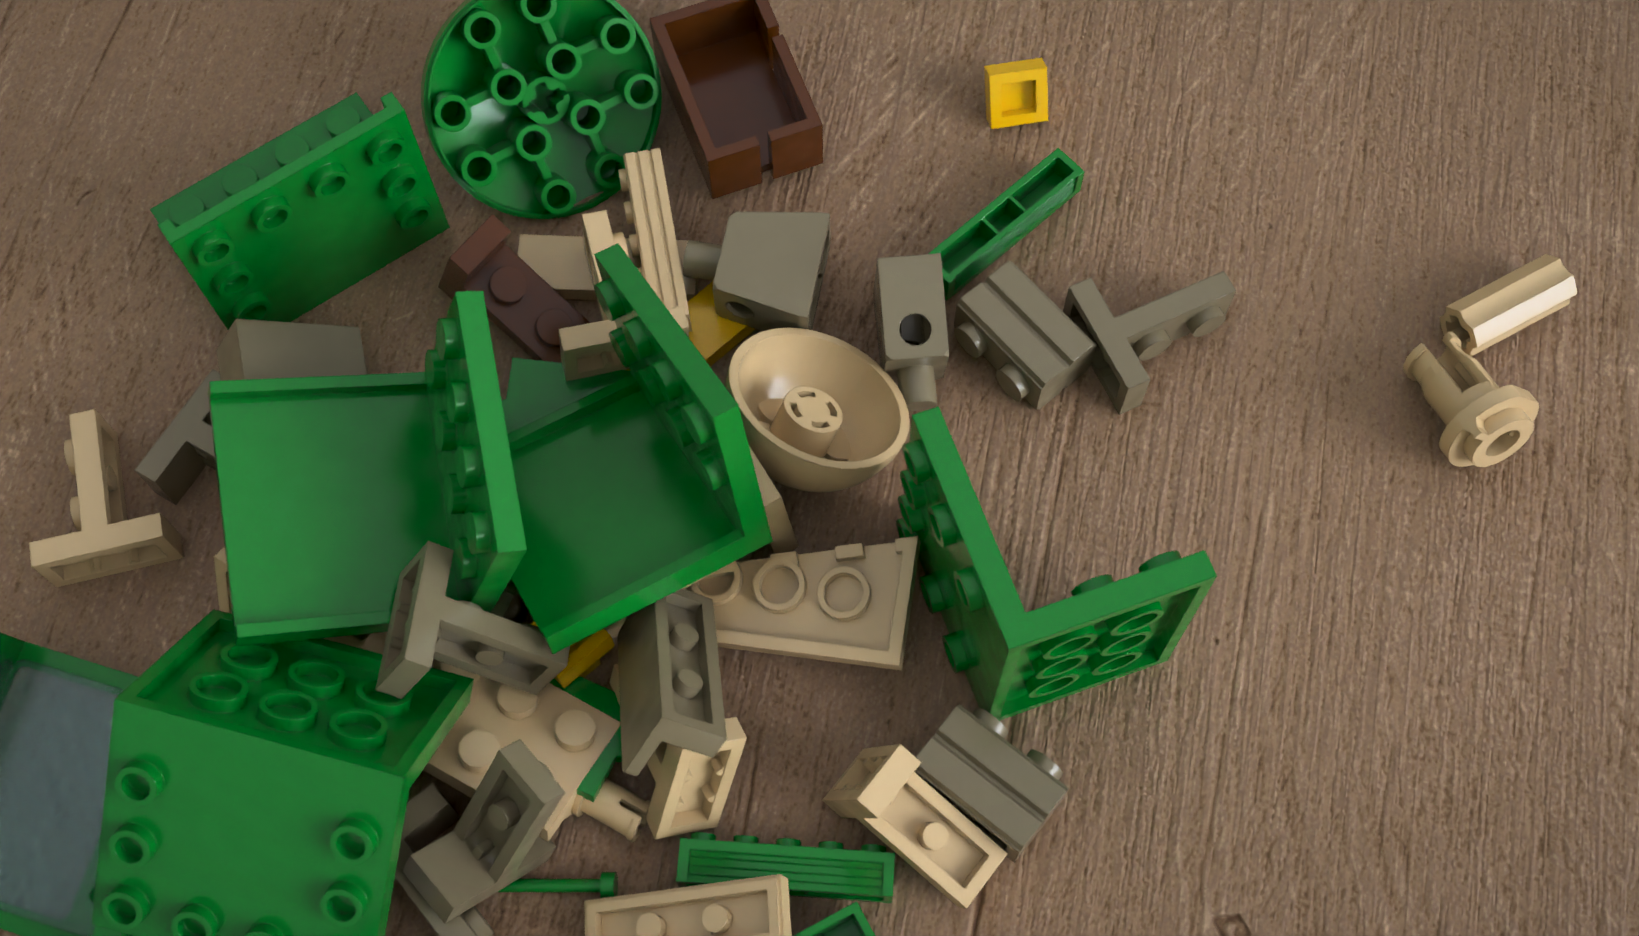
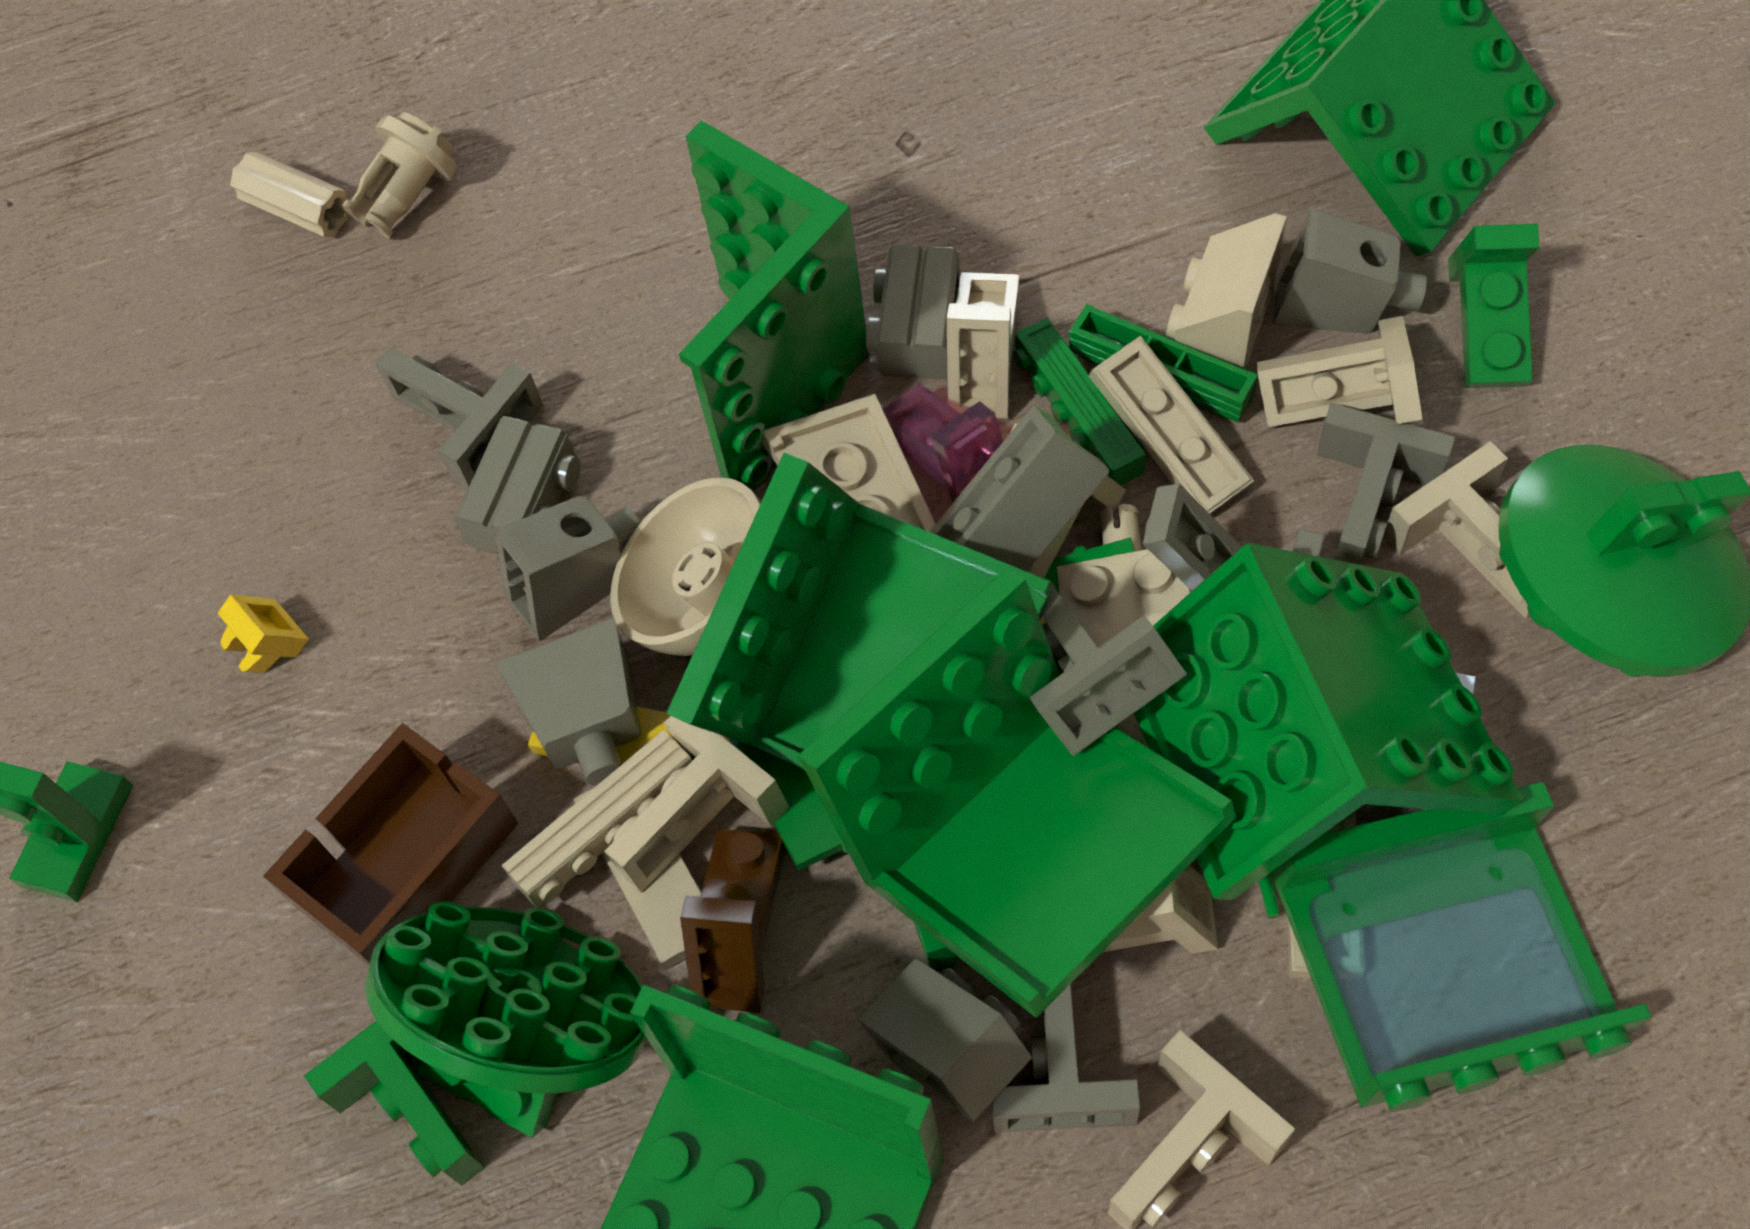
camera: 115 degrees left, 5 degrees down
(811, 702) = (941, 439): none -> clear pink bracket
(1007, 220) = (410, 565): green piece -> none

